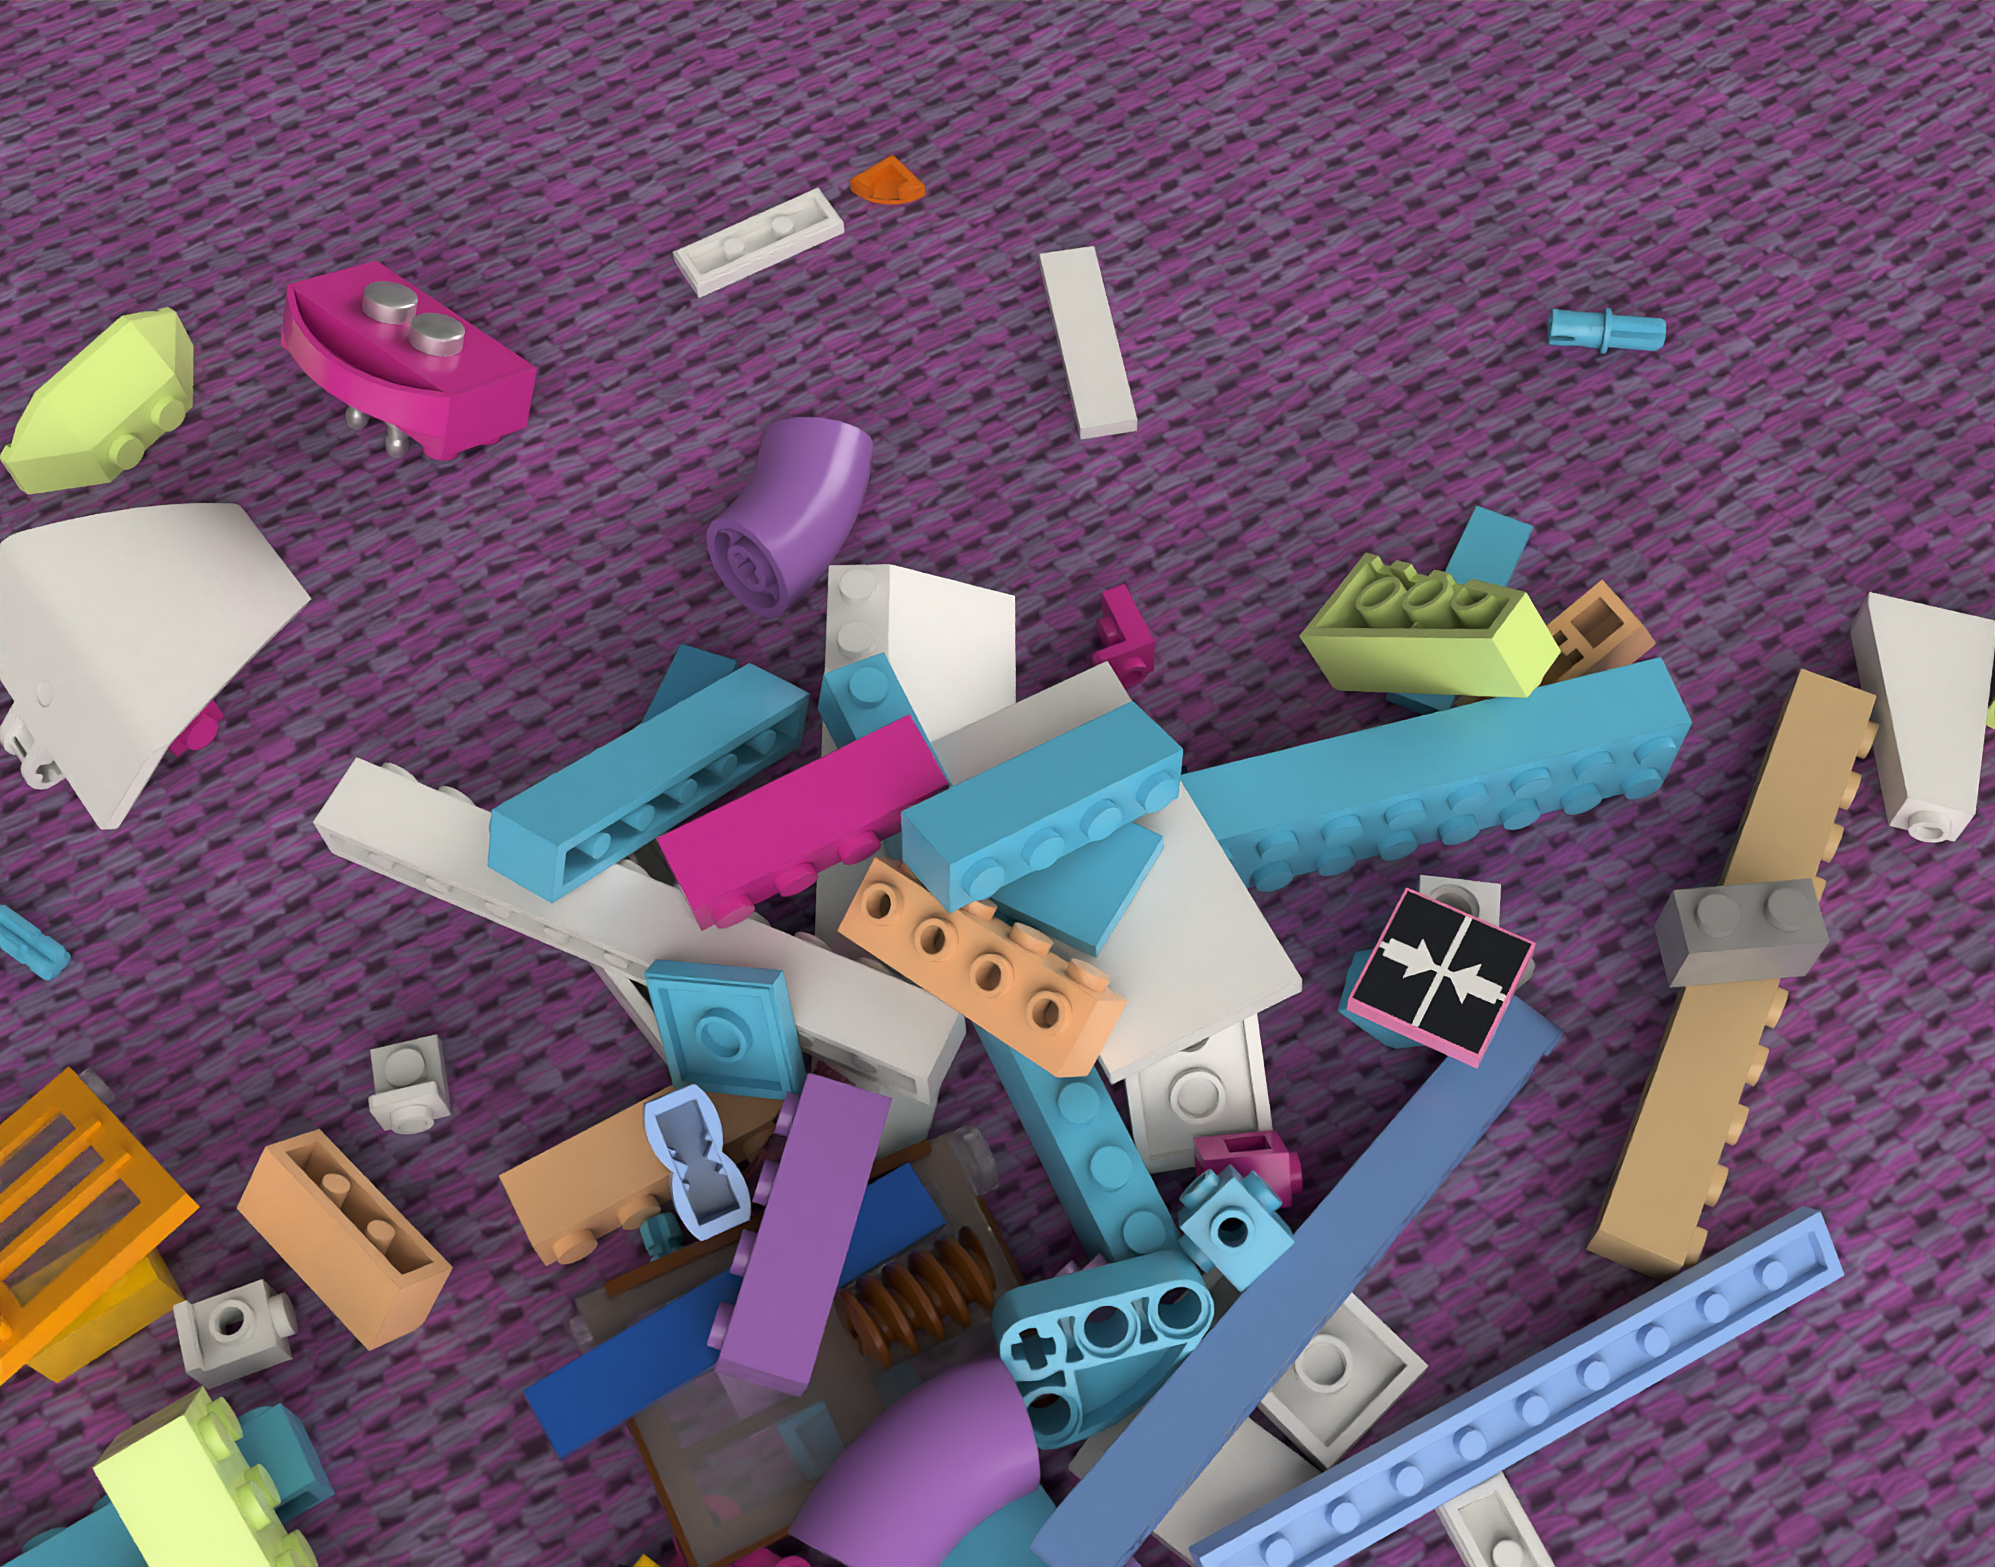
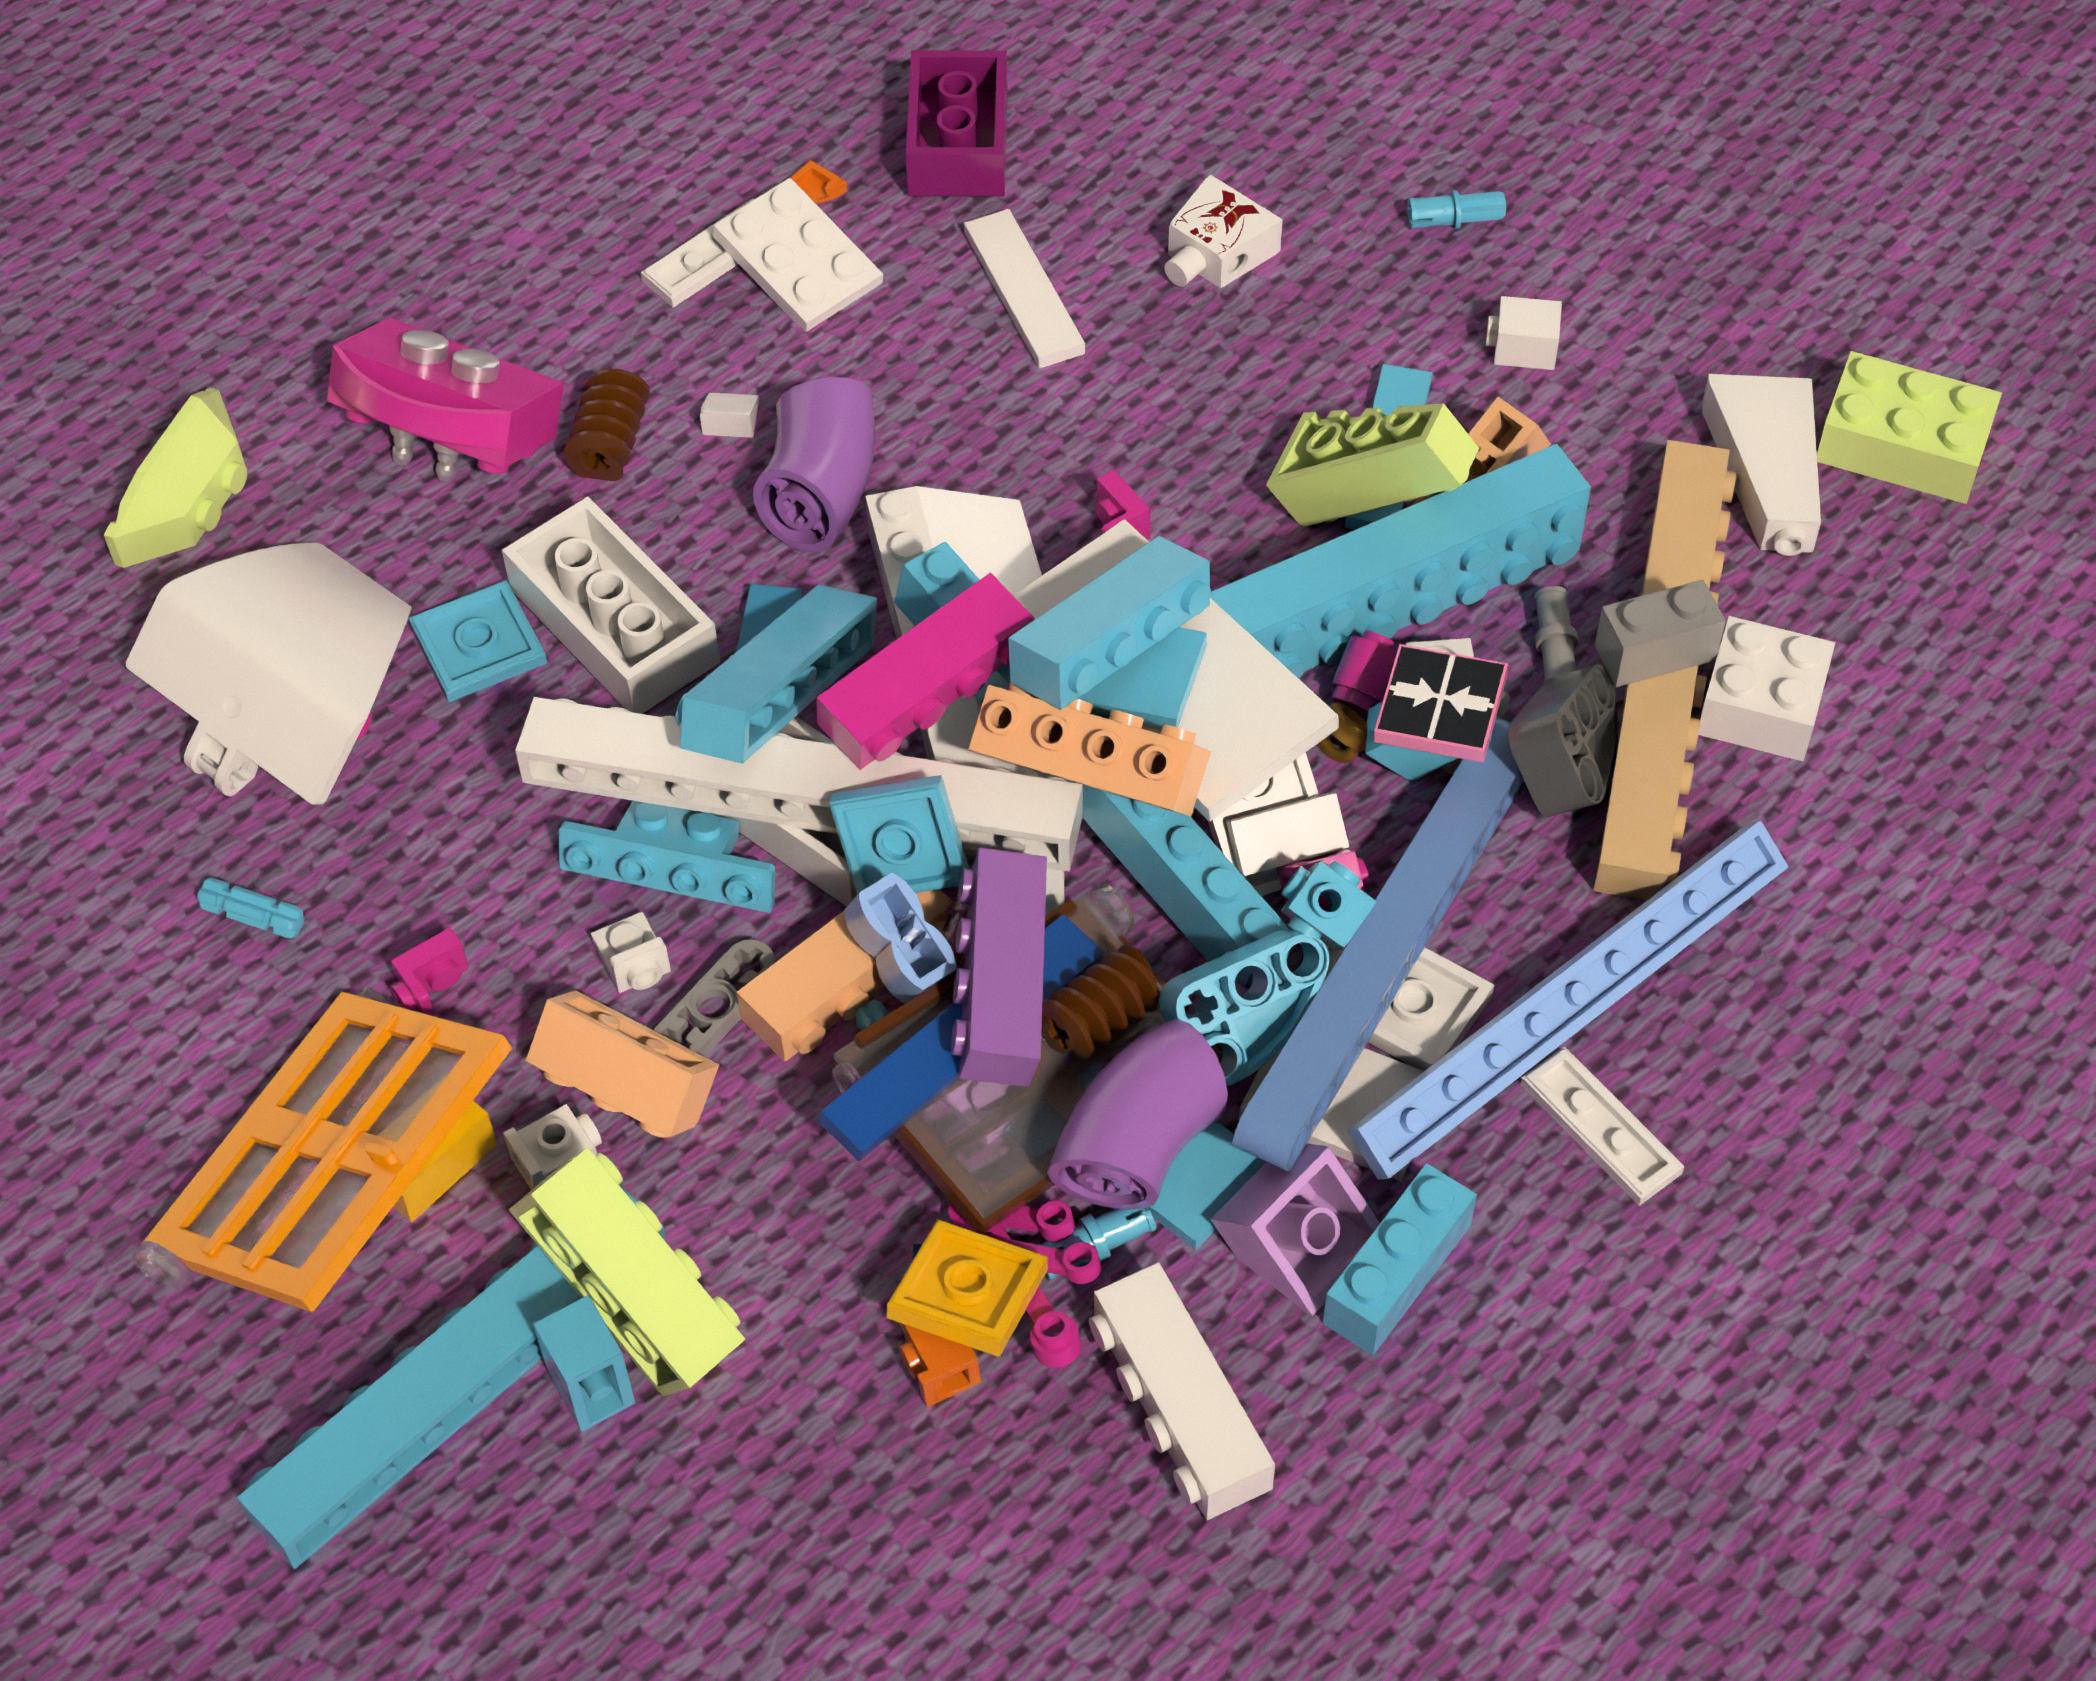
camera: 15 degrees left, 5 degrees down
(168, 1057) = (428, 967): none -> dark pink bracket
(365, 654) = (477, 640): none -> medium azure tile
(483, 1148) = (714, 985): none -> light grey beam
(489, 969) = (670, 853): none -> medium azure bracket
(513, 646) = (611, 606): none -> white brick
(578, 423) = (606, 424): none -> reddish brown piece
(720, 433) = (729, 414): none -> white slope
(846, 261) = (797, 254): none -> white plate
(1059, 138) = (957, 123): none -> magenta brick
(1213, 1106) = (1287, 834): none -> white tile
(1322, 318) = (1220, 236): none -> white torso
(1325, 968) = (1351, 732): none -> pearl gold tile
(1362, 899) = (1364, 671): none -> dark pink brick
(1593, 1048) = (1567, 740): none -> dark grey beam
(1609, 899) = (1555, 635): none -> light grey pin
(1655, 497) = (1525, 332): none -> white brick
(1864, 1023) = (1766, 688): none -> white brick

